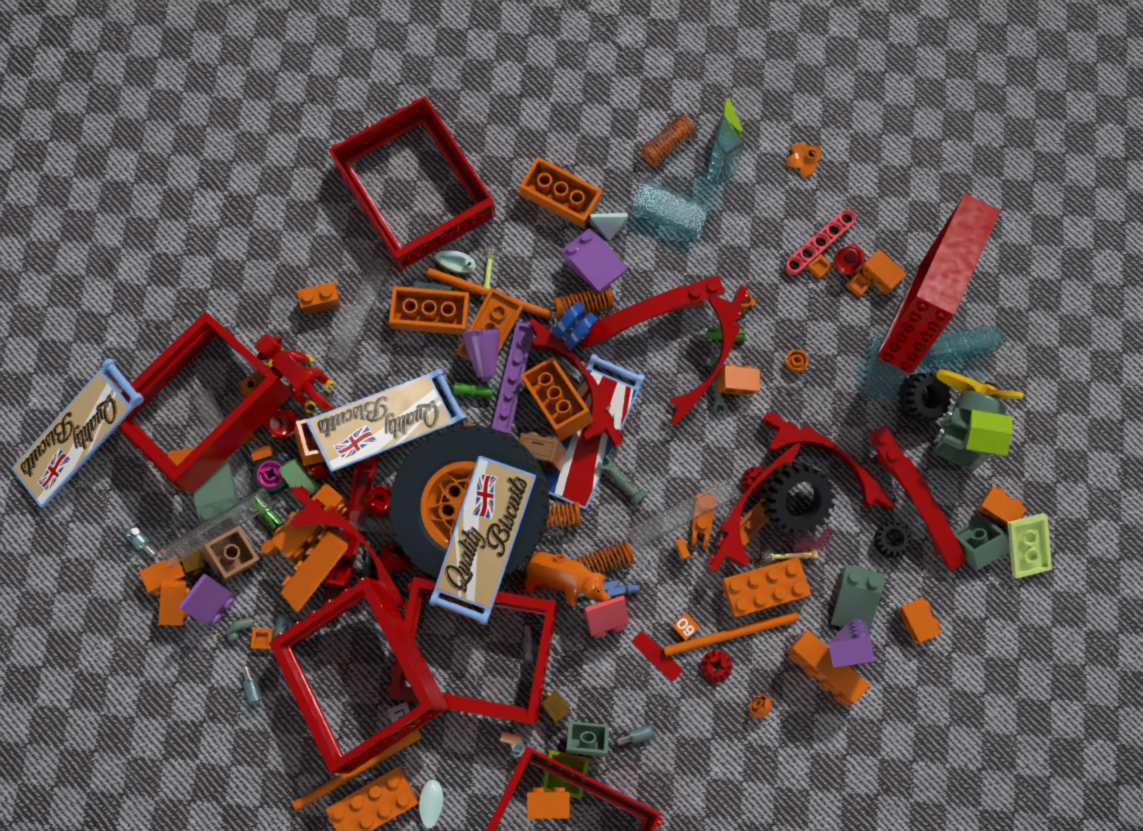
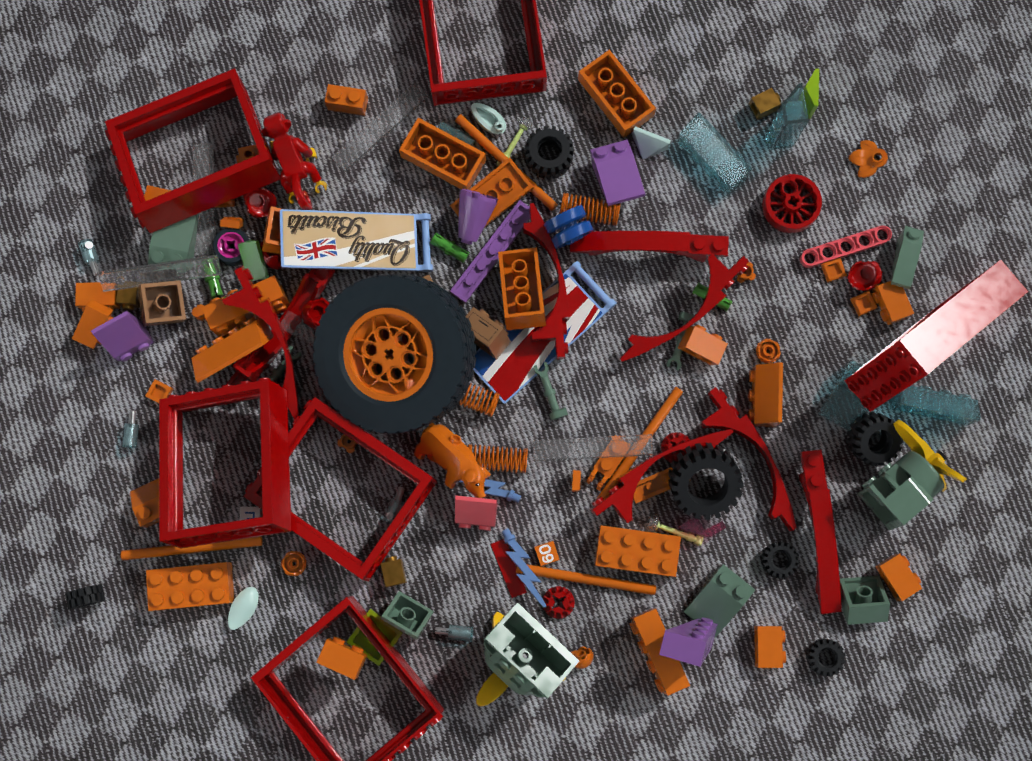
camera: 30 degrees right, 5 degrees up
(75, 434) = (72, 133): flag -> none
(238, 625) = (136, 373): sand green arm -> none
(282, 625) = (182, 387): clear light blue piece -> none
(299, 744) = (146, 503): none -> orange slope
(394, 559) = (305, 372): red hair -> none
(459, 733) = (289, 568): none -> orange plate
(483, 537) = (391, 389): flag -> none
(515, 742) = (343, 587): arm -> none
(524, 254) = (549, 137): none -> black tyre
(660, 641) = (516, 556): none -> medium blue piece
(682, 127) = (715, 86): orange piece -> none
(693, 148) = (765, 103): none -> pearl gold brick
(711, 727) = (523, 657): none -> sand green brick
(726, 474) = (650, 429): none -> orange piece
(754, 204) = (792, 181): none -> red piece
(814, 399) = (766, 394): none -> orange slope
(877, 228) = (906, 256): none -> sand green slope
(981, 599) = (838, 657): none -> black tyre
(989, 433) = (914, 501): lime slope -> none
(1029, 545) = (908, 624): yellowish green plate -> none

